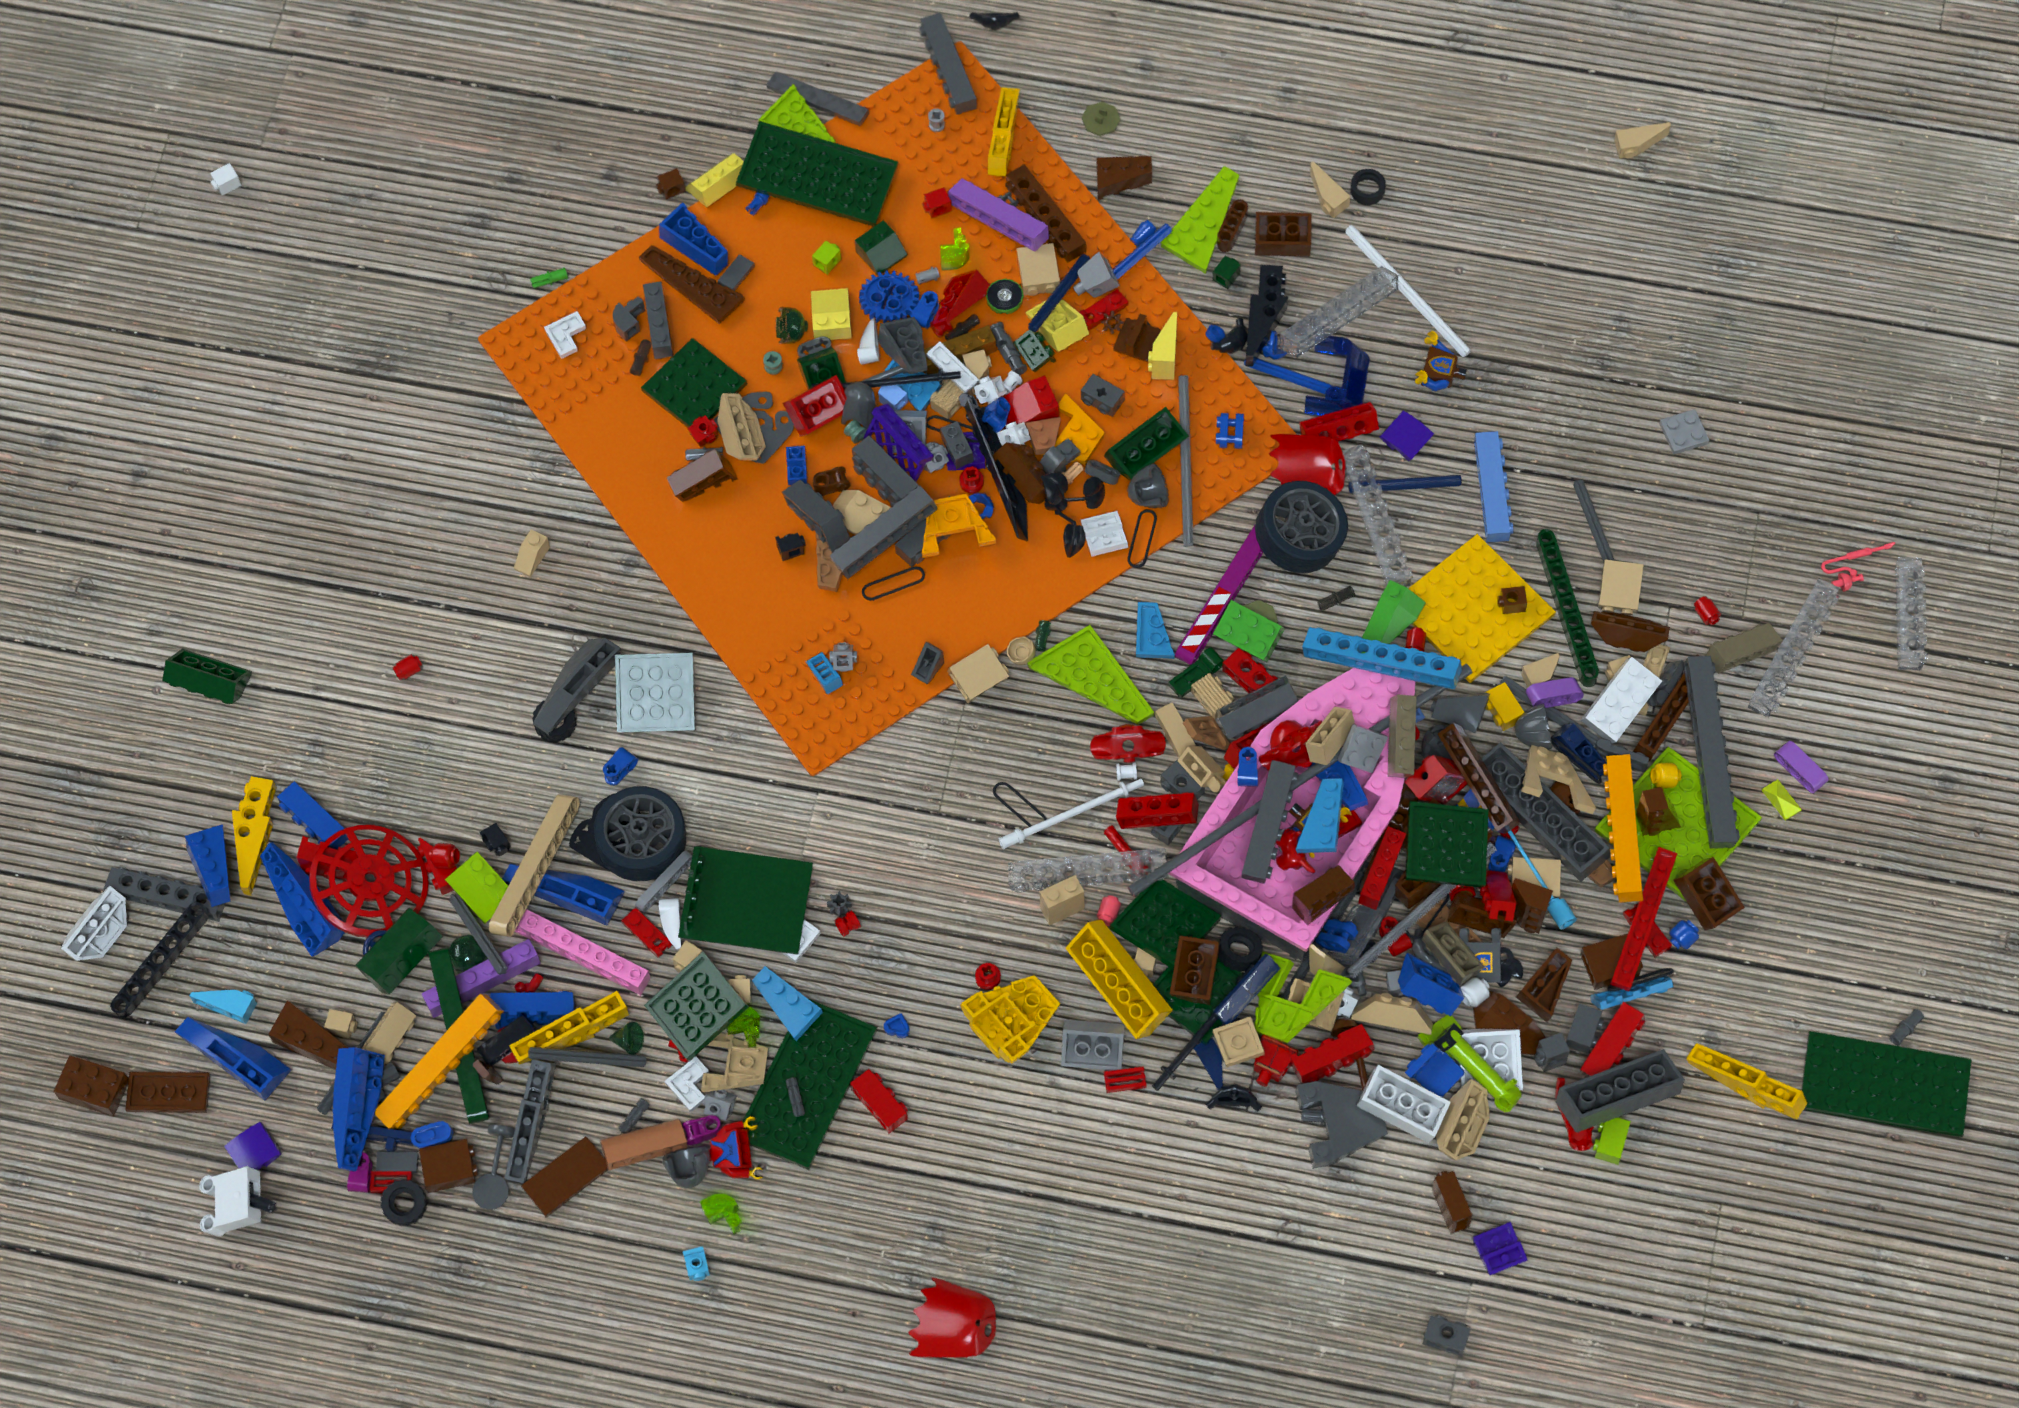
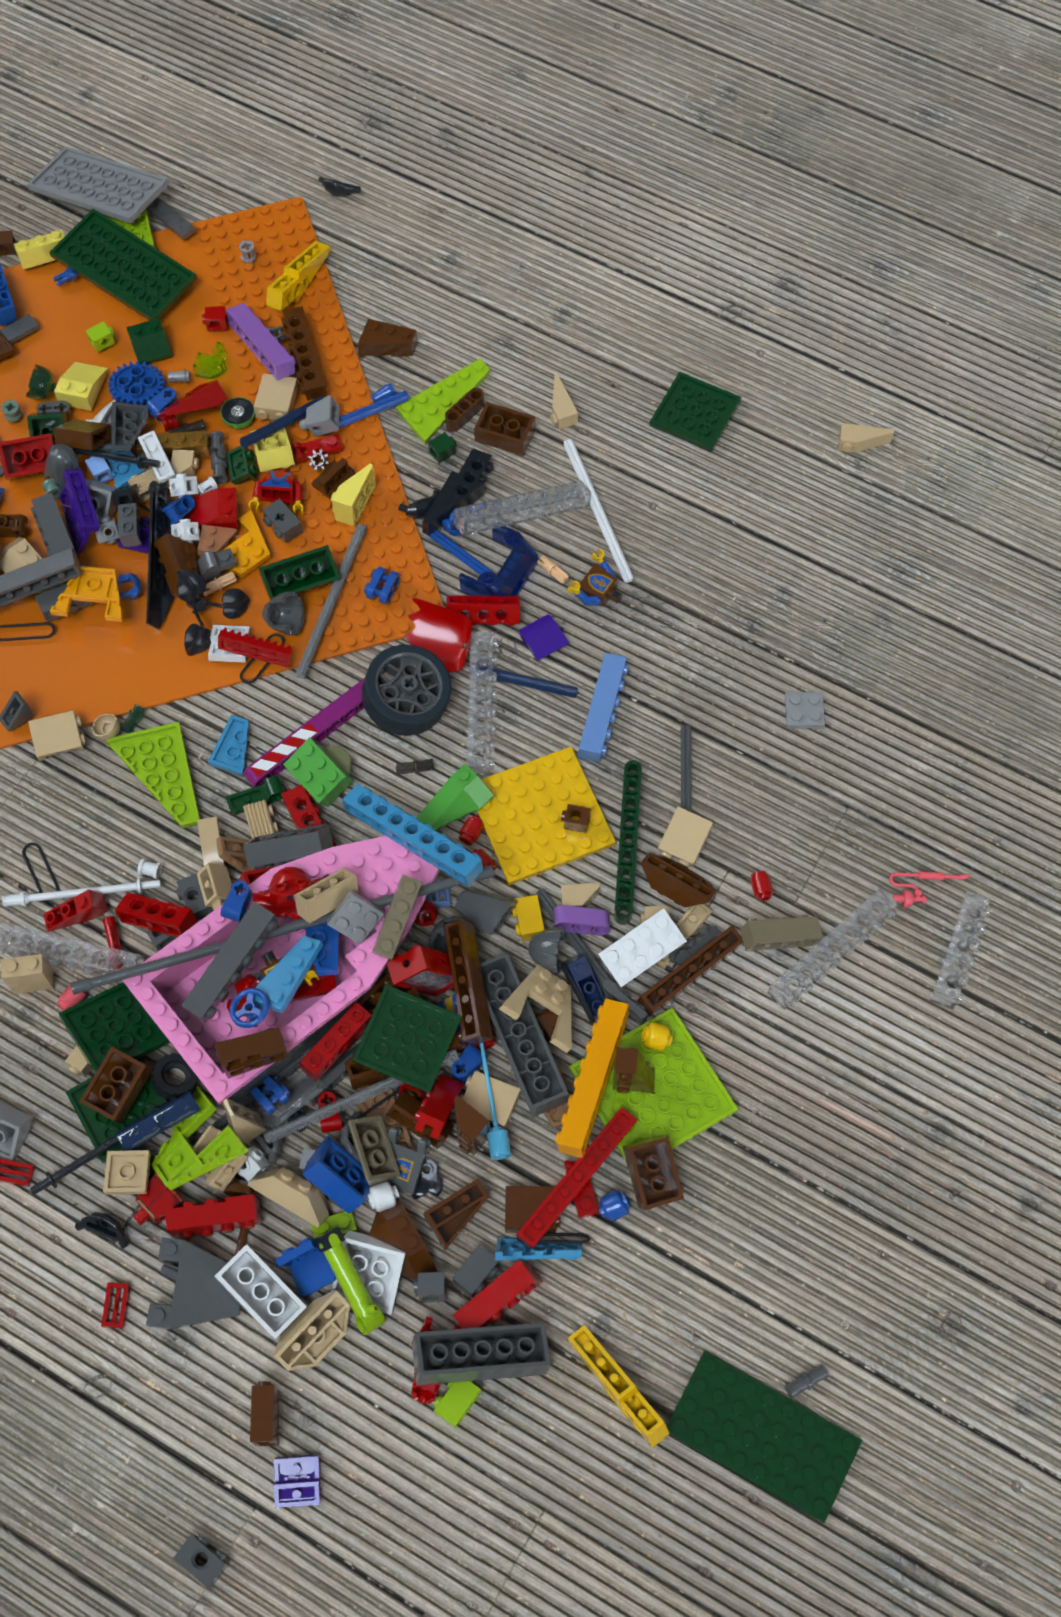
camera: 15 degrees right, 0 degrees up
(744, 90) = (98, 184): none -> light grey plate
(865, 366) = (82, 434): none -> reddish brown brick
(938, 411) = (126, 495): none -> black brick
(948, 63) = (278, 209): dark grey brick -> none
(975, 482) = (134, 561): red piece -> none
(1074, 831) = (76, 910): none -> red slope
(1083, 362) = (277, 486): none -> red torso
(1101, 118) = (392, 291): olive piece -> none
(1102, 471) = (251, 588): dark grey beam -> none
(1118, 979) = (44, 1070): yellow brick -> none
(1136, 530) = (255, 648): none -> red gear
(1145, 742) = (179, 849): red piece -> none
(1212, 1061) = (98, 1180): dark blue sticker -> none
(1215, 333) = (408, 496): blue tile -> none
(1278, 1176) = (113, 1324): none -> red tile
(1310, 861) = (256, 1015): none -> blue piece
(1367, 174) = (599, 421): black tyre -> none
(1389, 365) = (553, 569): none -> light nougat axle
(1464, 159) = (695, 411): none -> dark green plate
(1710, 752) = (708, 1028): dark grey brick -> none
(1781, 799) = (766, 1096): neon yellow slope -> none
(1801, 767) = (797, 1070): medium lavender beam -> none

